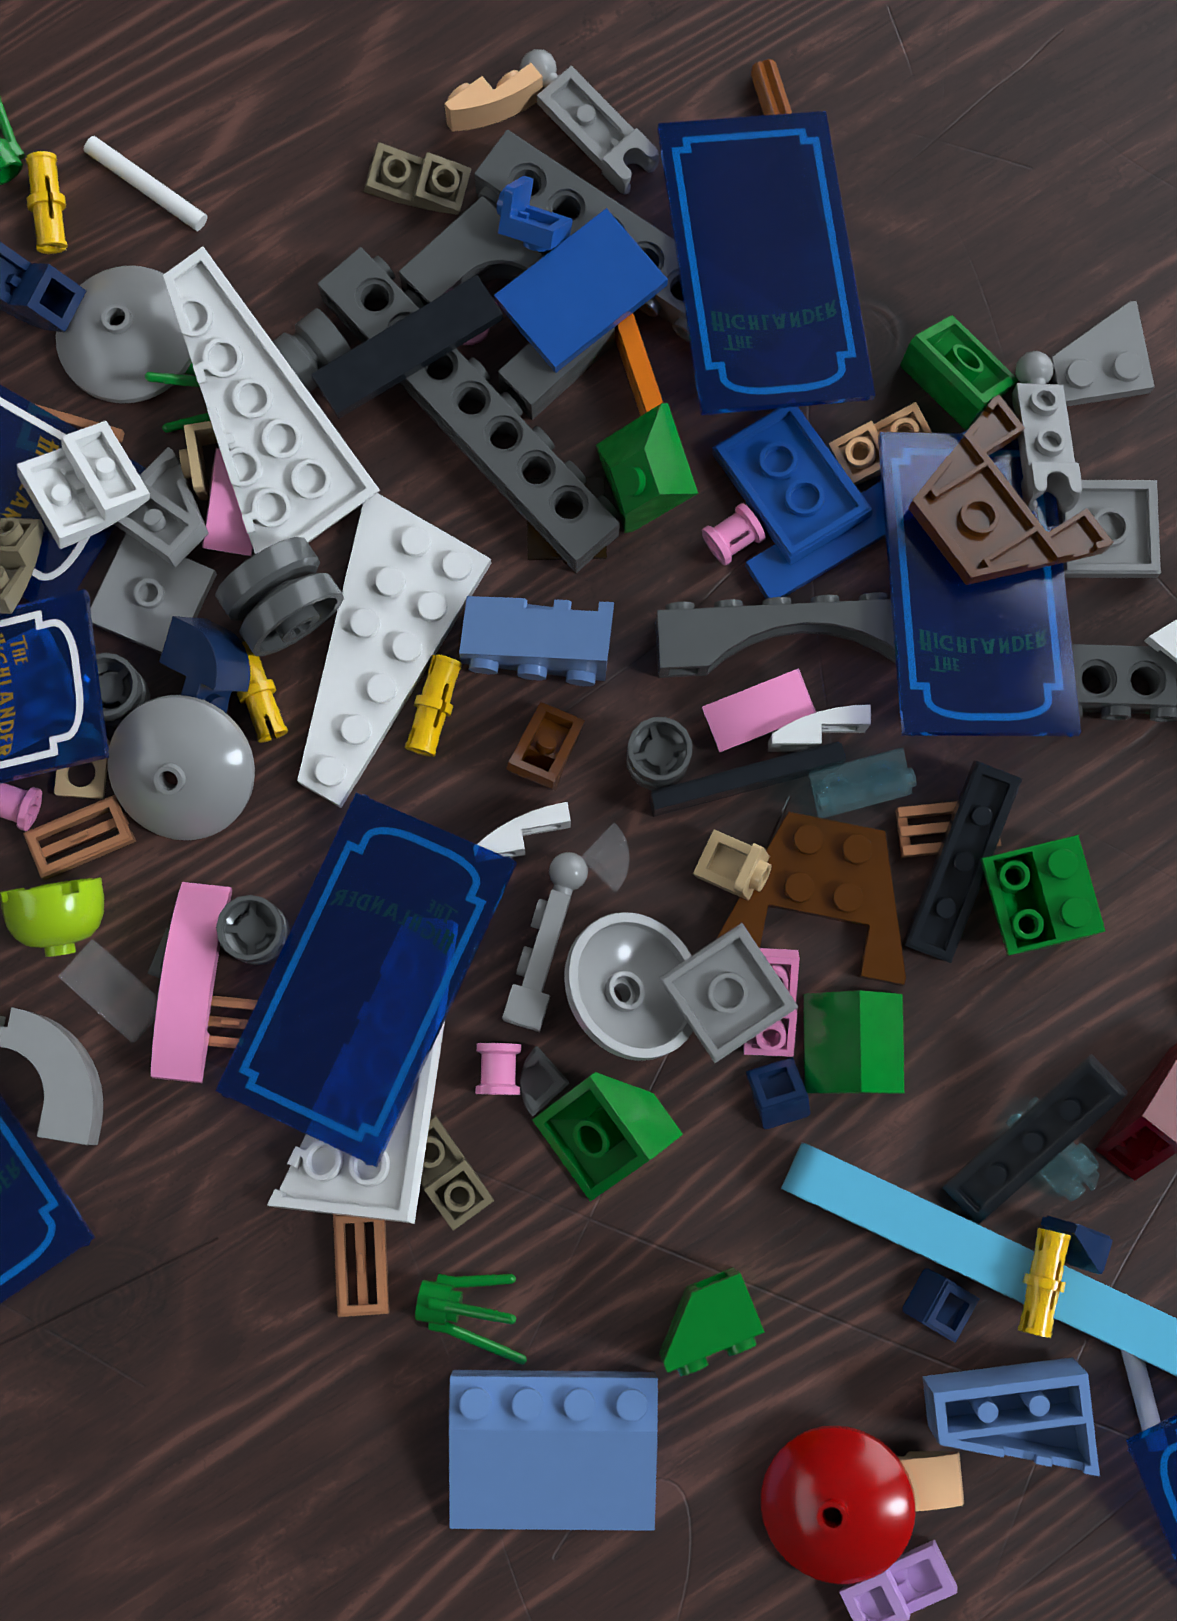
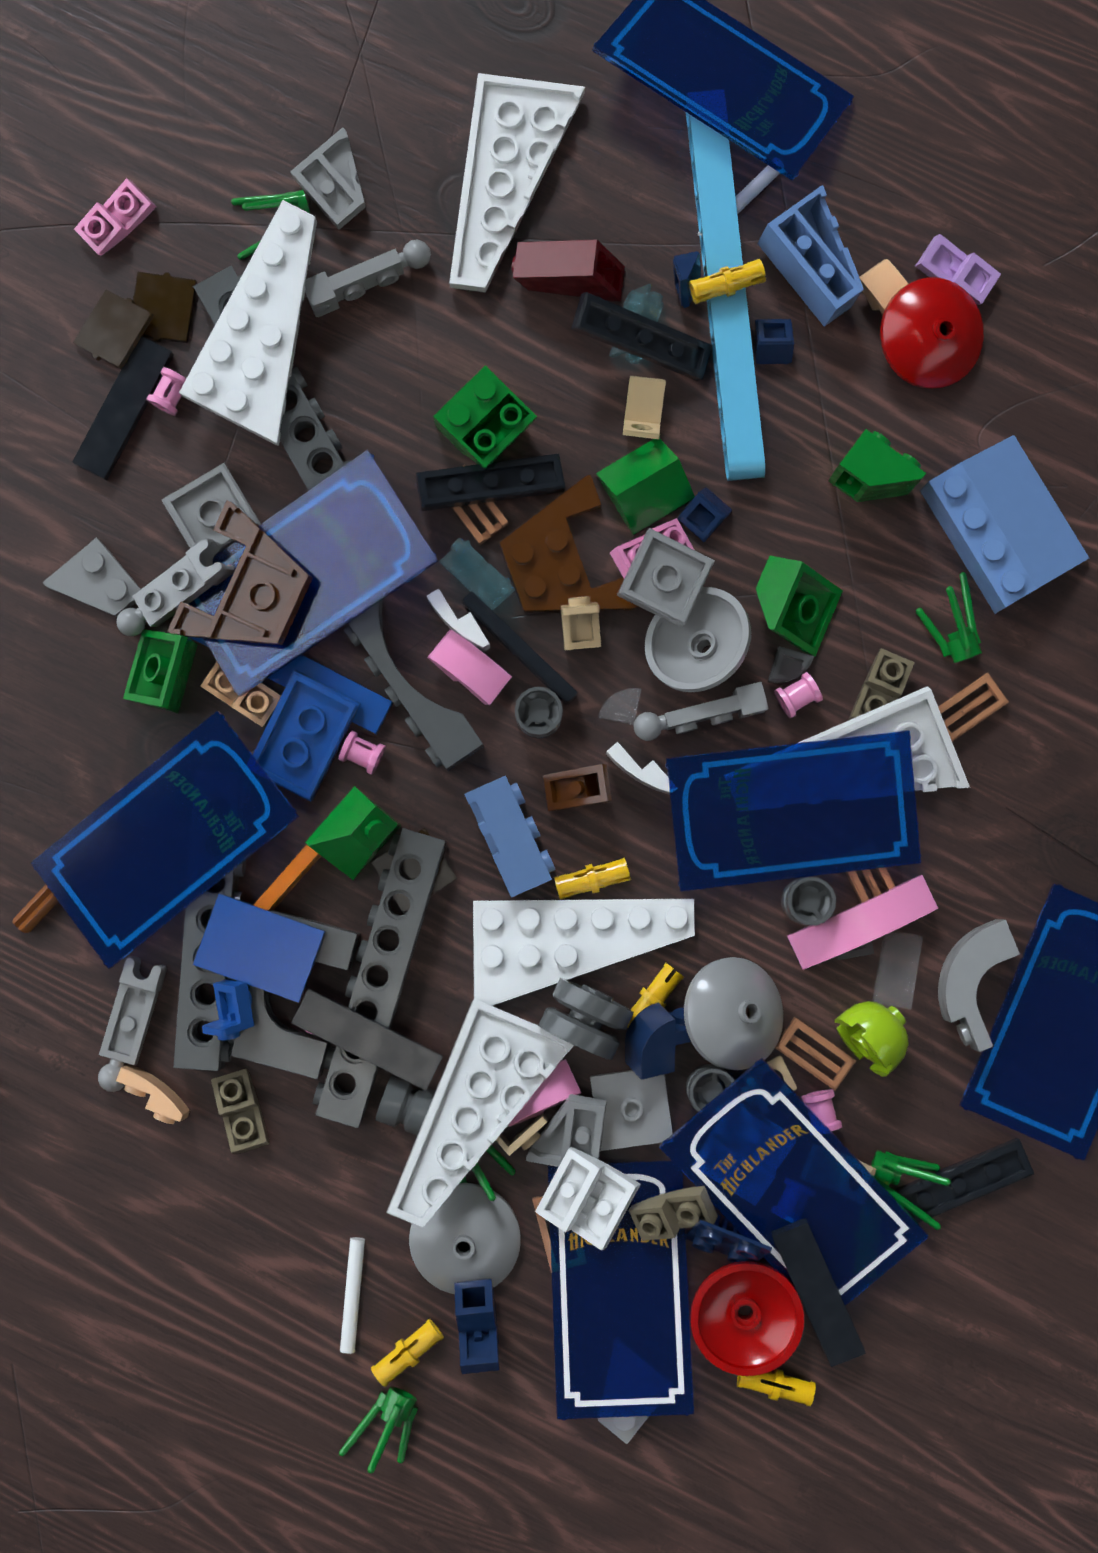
camera: 115 degrees left, 5 degrees up
(946, 1094) = (644, 407): none -> tan bracket

